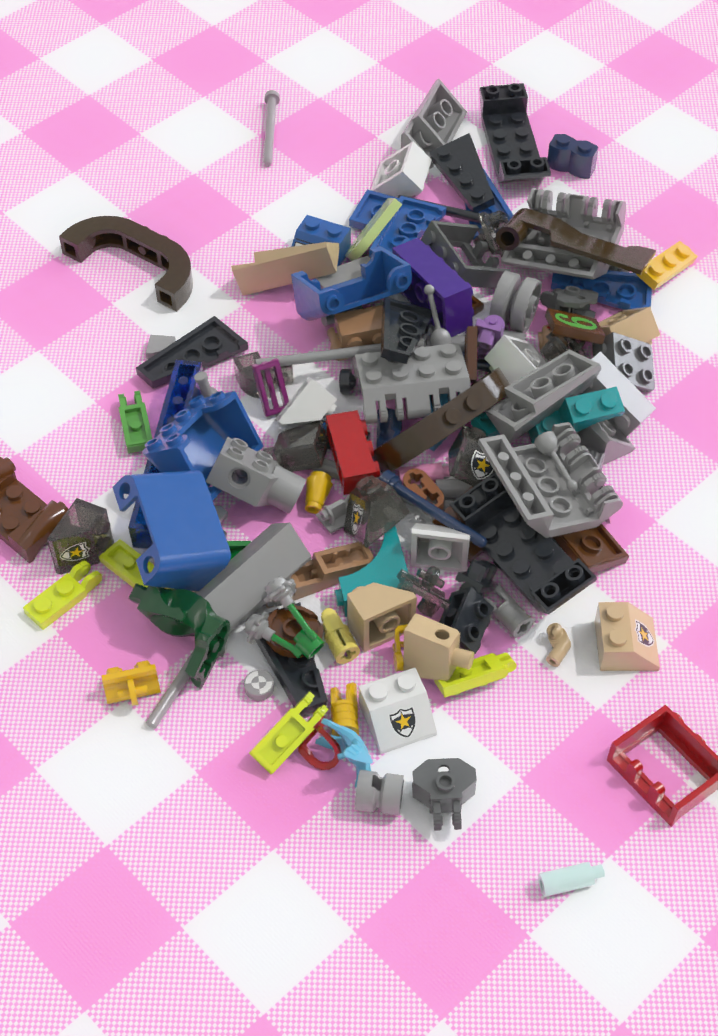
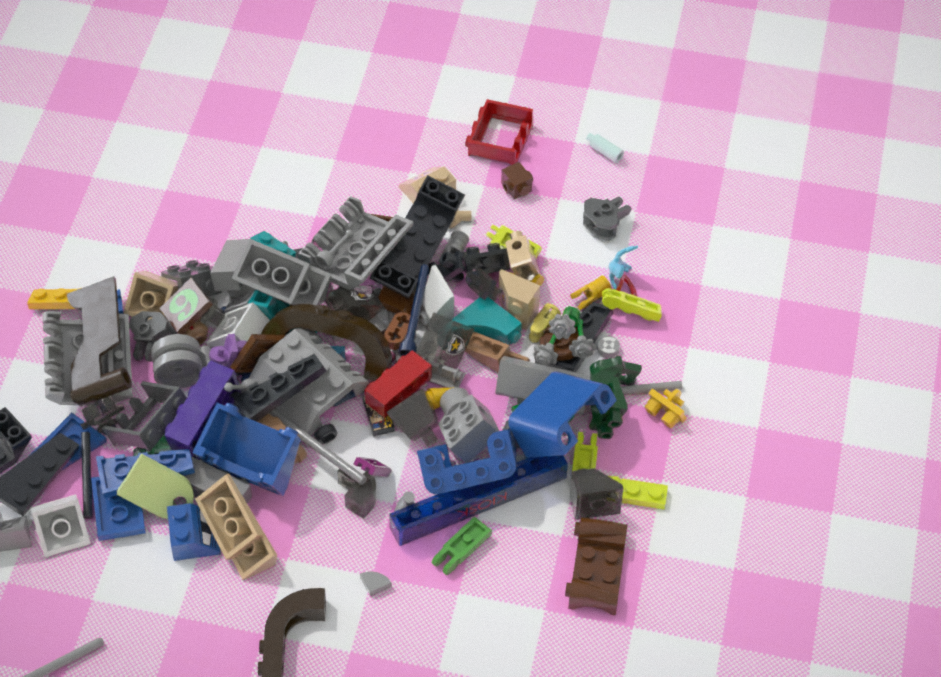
camera: 125 degrees left, 0 degrees up
(205, 344) = (357, 549): black wing -> none
(308, 404) = (377, 432): white slope -> none
(379, 792) = (627, 237): light grey wheel -> none
(397, 710) = (568, 268): white slope -> none
(572, 735) = (516, 180): none -> reddish brown brick

